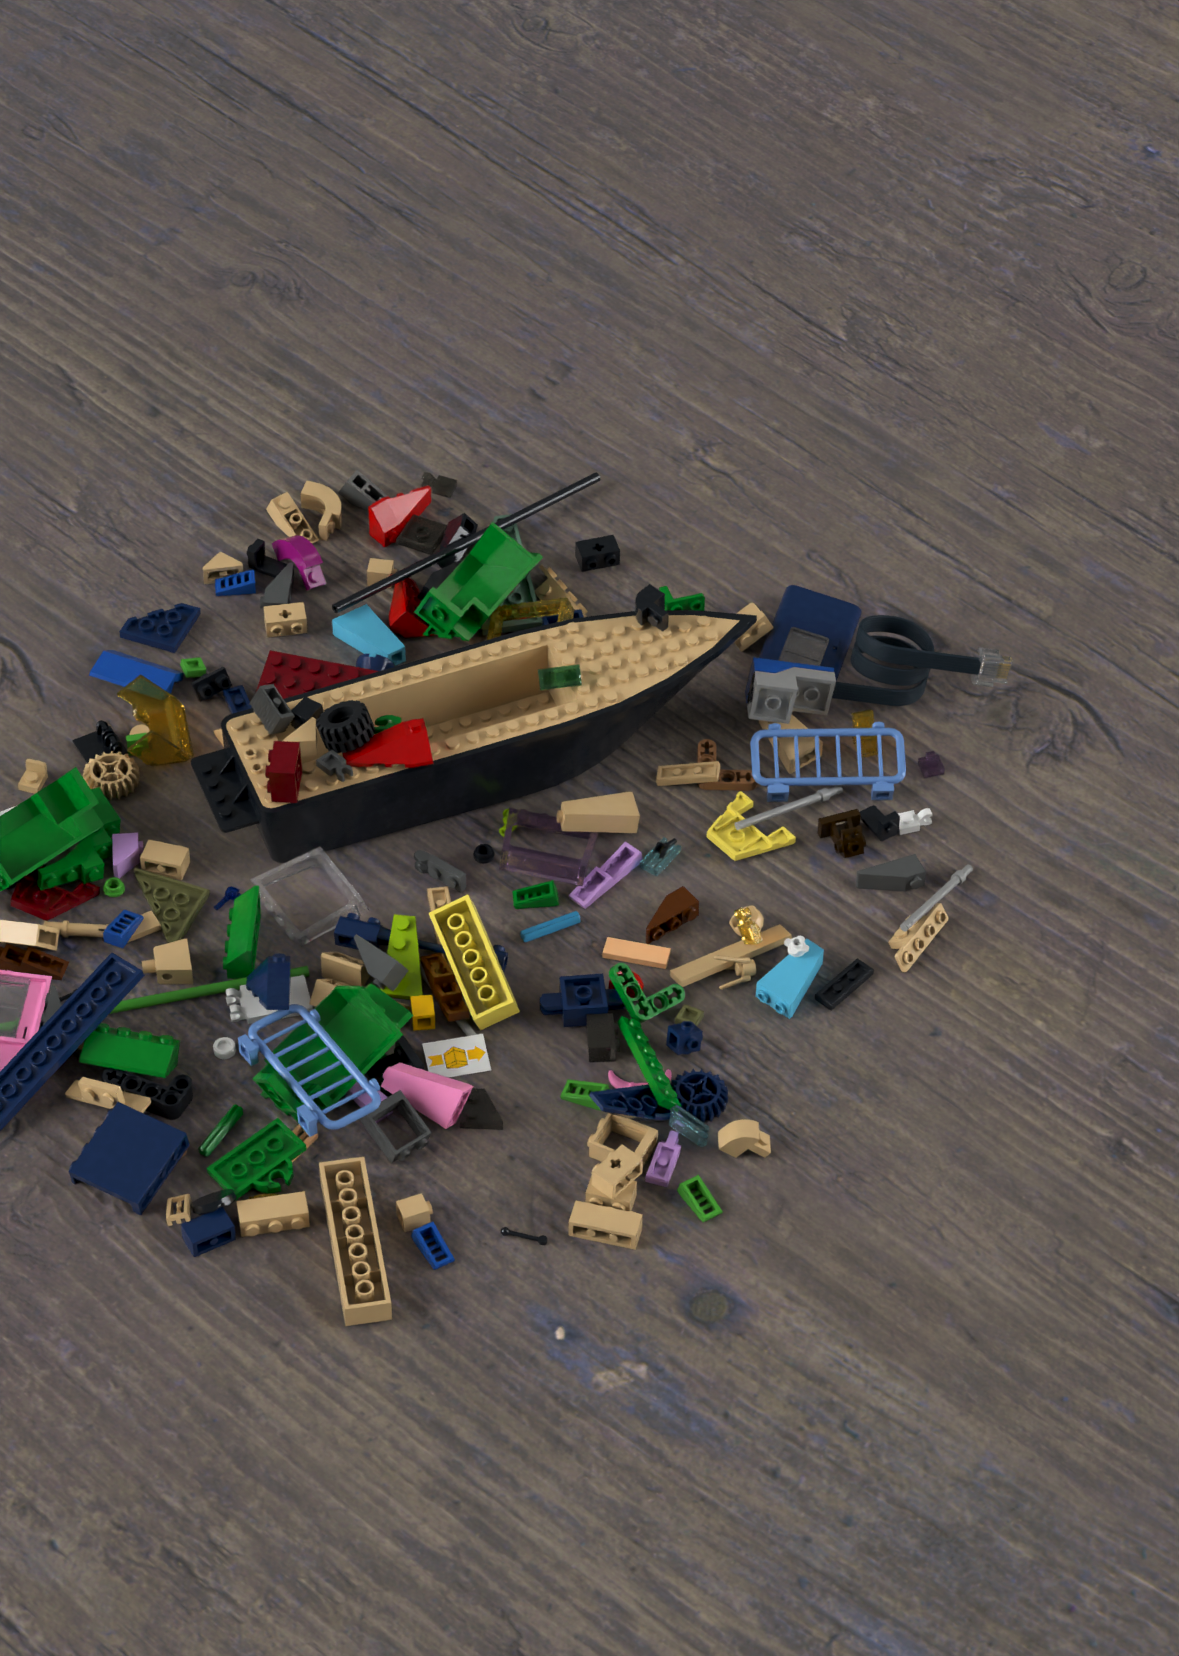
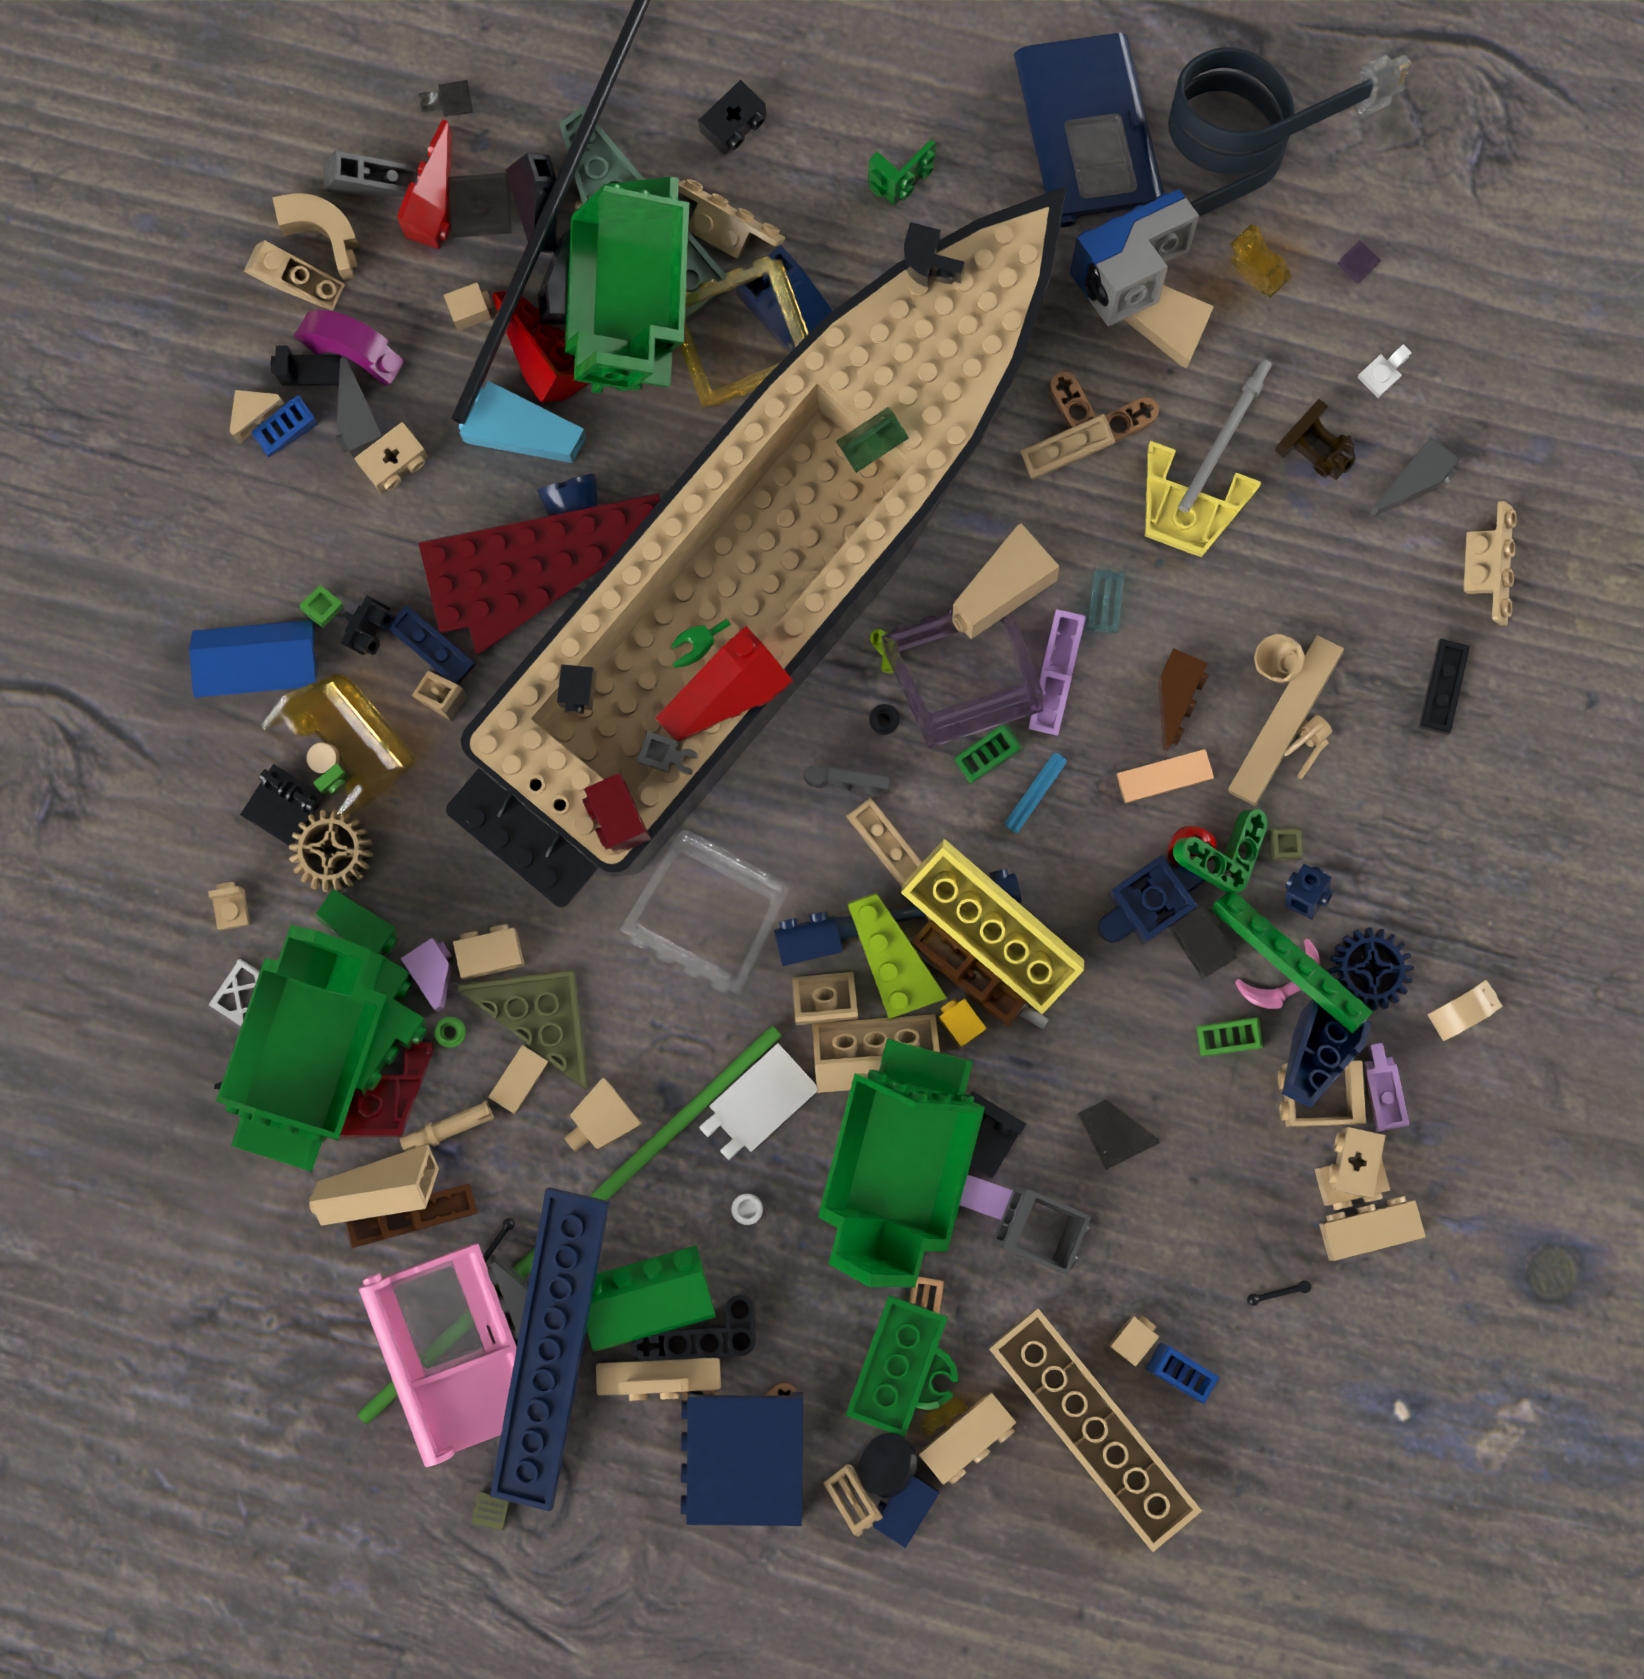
camera: 25 degrees left, 35 degrees up
(120, 939) = (510, 1123): blue slope -> none
(162, 628) = (235, 556): dark blue plate -> none
(220, 1130) = (822, 1341): green axle -> none
(231, 893) = (605, 959): clear blue hand -> none
(243, 935) = (667, 1027): green slope -> none
(271, 709) = (529, 709): dark grey brick -> none
(272, 982) = (759, 1102): dark blue wedge -> none
(307, 736) = (599, 732): tan slope -> none
(309, 1113) = (953, 1292): medium blue bar -> none
(345, 726) = (625, 682): black tyre -> none
(380, 965) = (875, 991): dark grey slope -> none
(428, 1092) = (1051, 1159): bright pink slope -> none
(457, 1056) = (1040, 1065): white sticker -> none
(662, 848) = (1109, 593): black hand -> none
(688, 1125) = (1403, 1023): clear light blue tile -> none
(696, 1183) = (1438, 1114): bright green slope -> none
(748, 929) = (1299, 681): clear yellow plate -> none
(756, 631) = (1002, 149): tan bracket -> none
(779, 787) = (1320, 332): medium blue bar -> none
(789, 980) = (1381, 720): medium azure slope -> none
(796, 946) = (1372, 685): white plate -> none
(880, 825) = (1349, 398): black bracket -> none
(956, 880) = (1493, 439): light grey bar -> none

